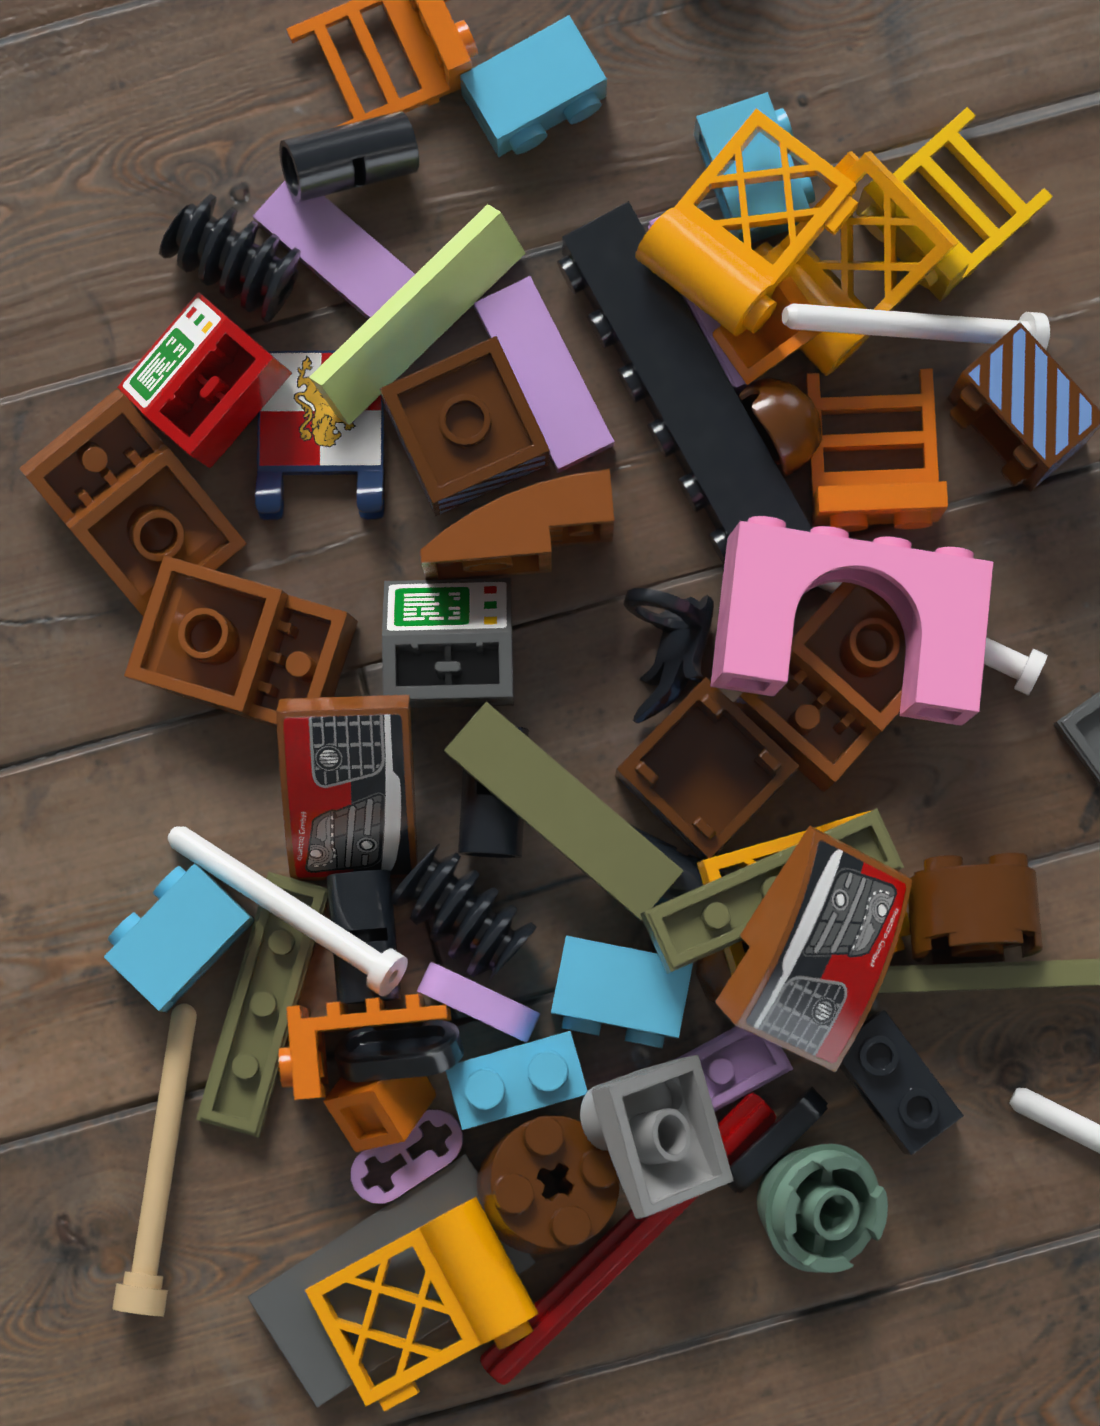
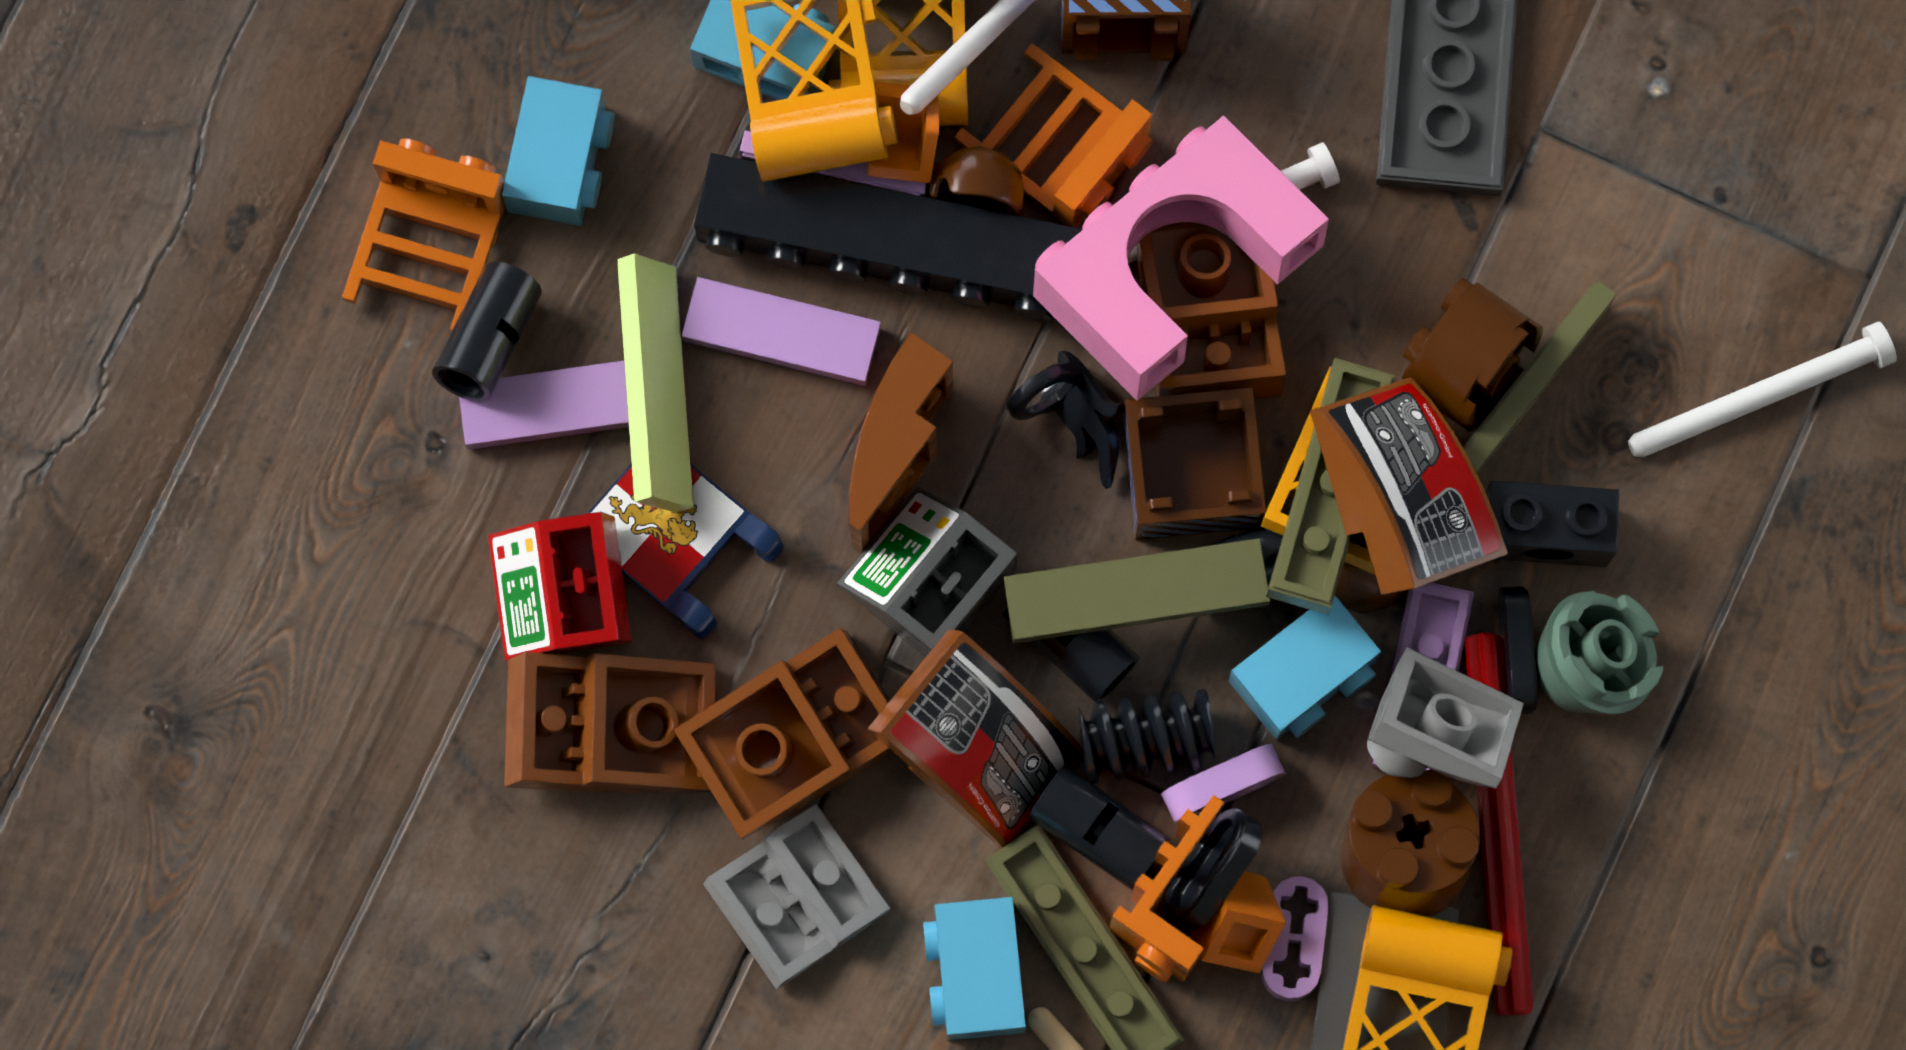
camera: 50 degrees left, 5 degrees down
(122, 754) = (796, 896): none -> light grey slope
(231, 257) = (485, 483): black piece -> none
(383, 968) = (1140, 826): white bar -> none
(466, 426) = (774, 419): reddish brown container -> none
(516, 1080) = (1309, 802): medium azure brick -> none

